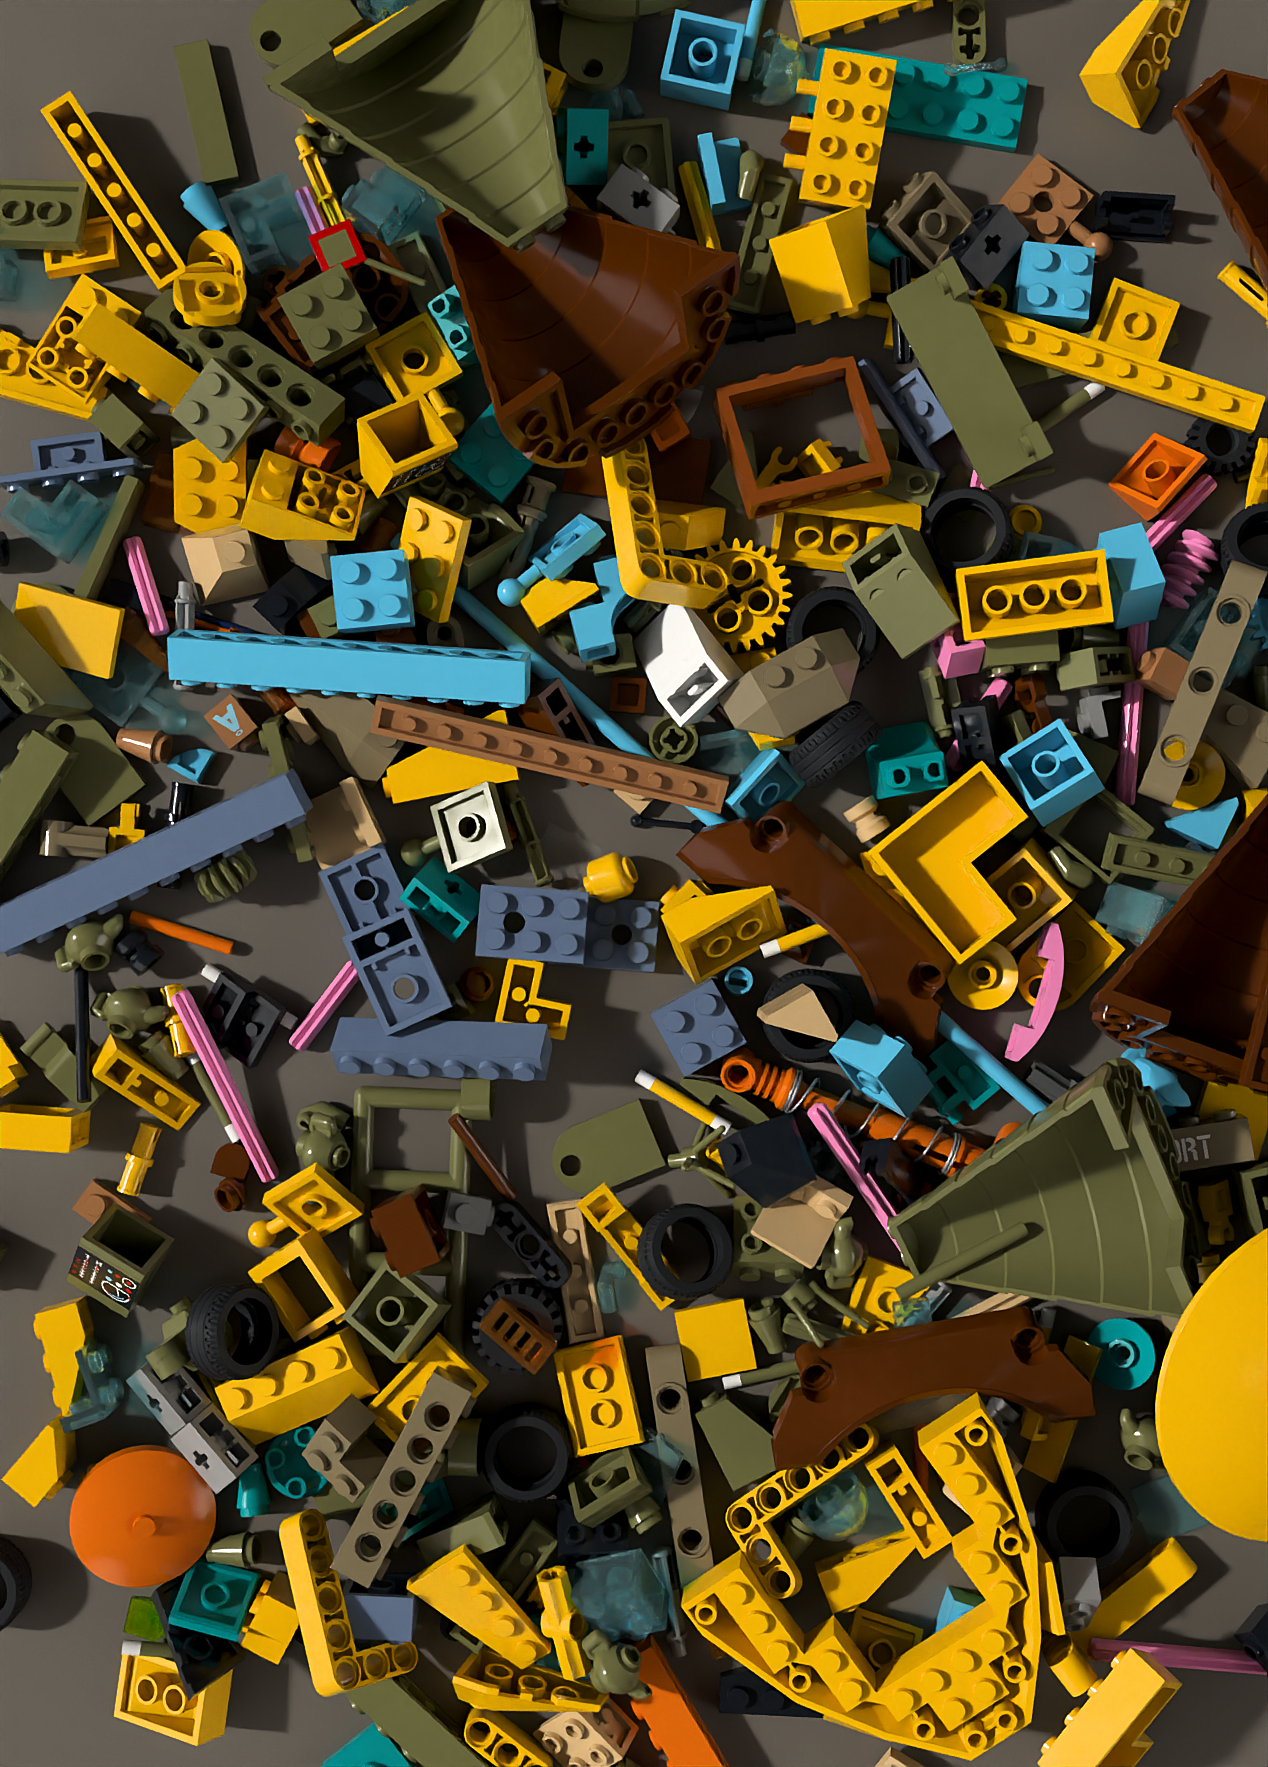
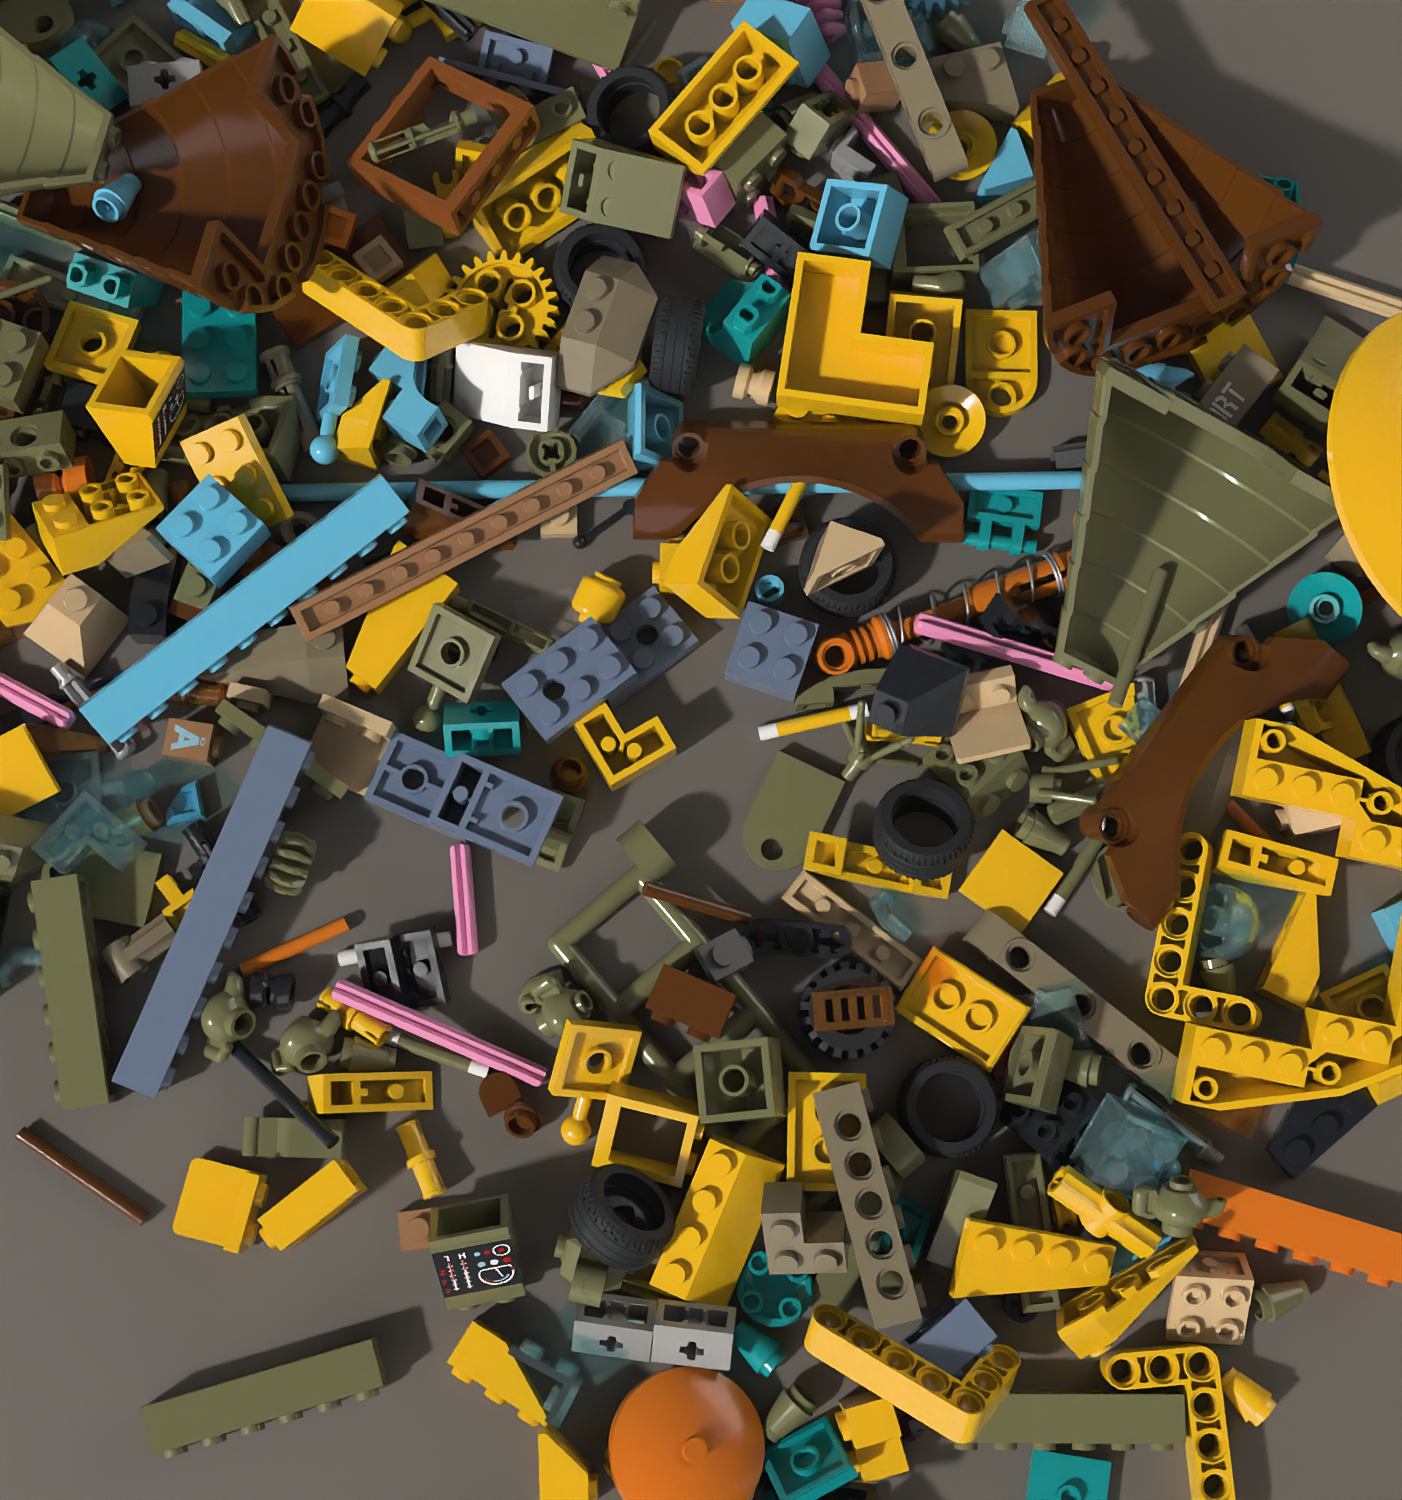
camera: 45 degrees left, 10 degrees down
(106, 729) = (88, 827): none -> clear light blue brick
(443, 1049) = (586, 840): sand blue brick -> none
(518, 269) = (115, 199): none -> medium azure cone
(677, 480) = (378, 260): none -> tan plate
(736, 1437) = (1100, 944): olive slope -> none
(787, 419) = (421, 135): none -> olive piece
(882, 1067) = (939, 549): medium azure brick -> none
(1051, 948) = (984, 355): bright pink slope -> none

